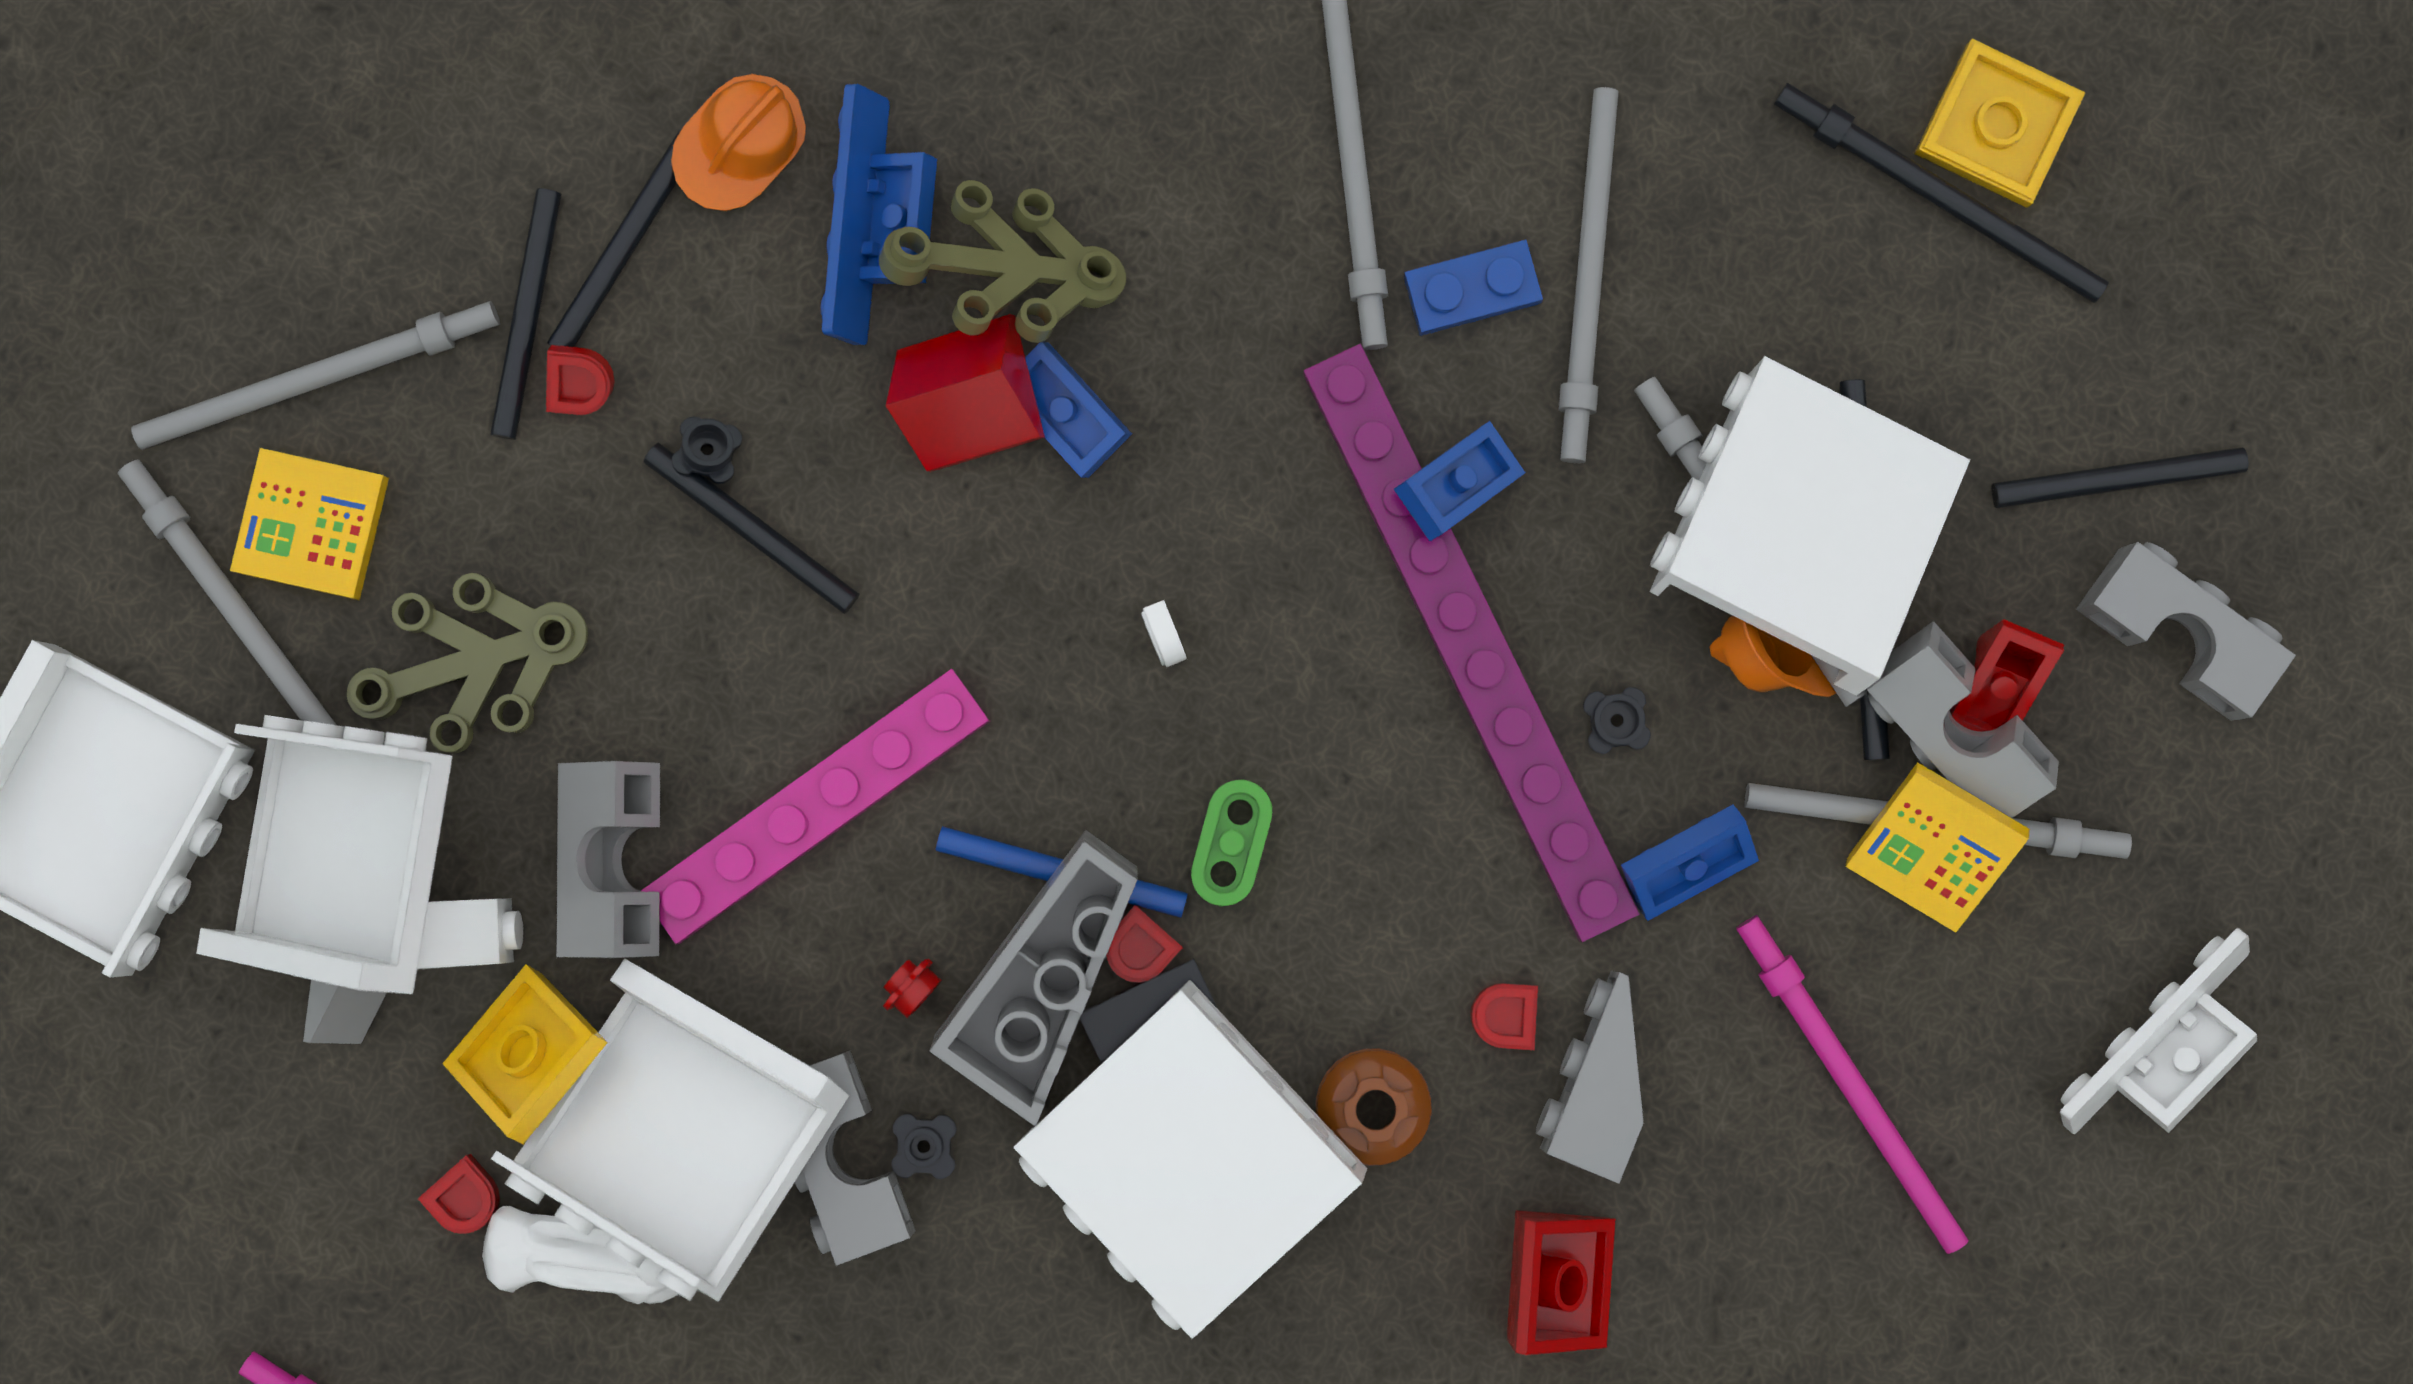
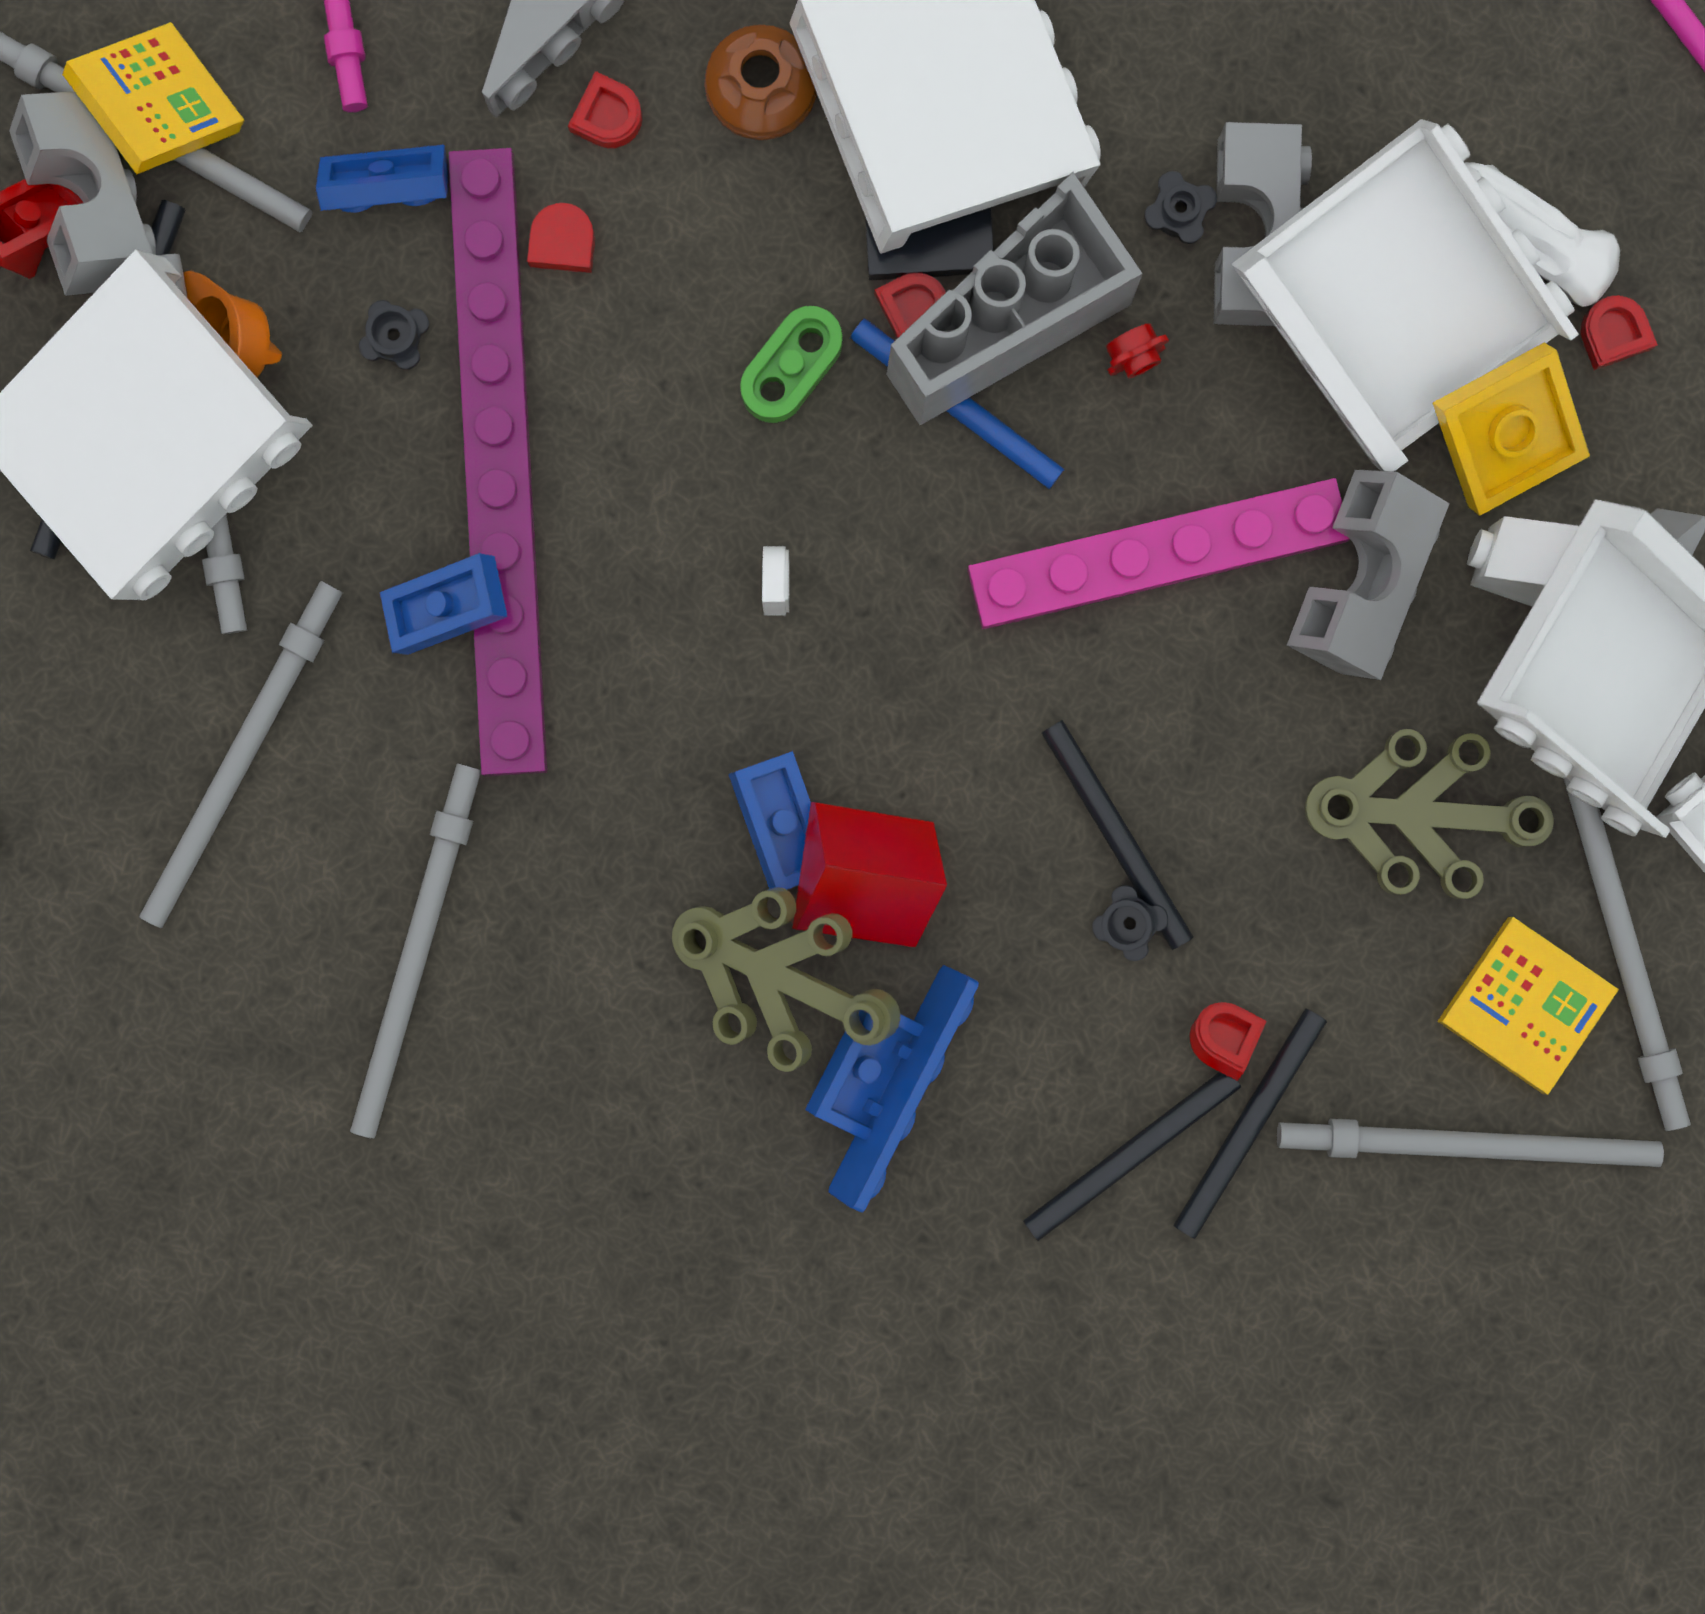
camera: 160 degrees left, 0 degrees up
(738, 142) = (986, 1206): orange piece -> none
(1473, 287) = (354, 786): blue plate -> none
(1498, 876) = (561, 239): none -> red tile

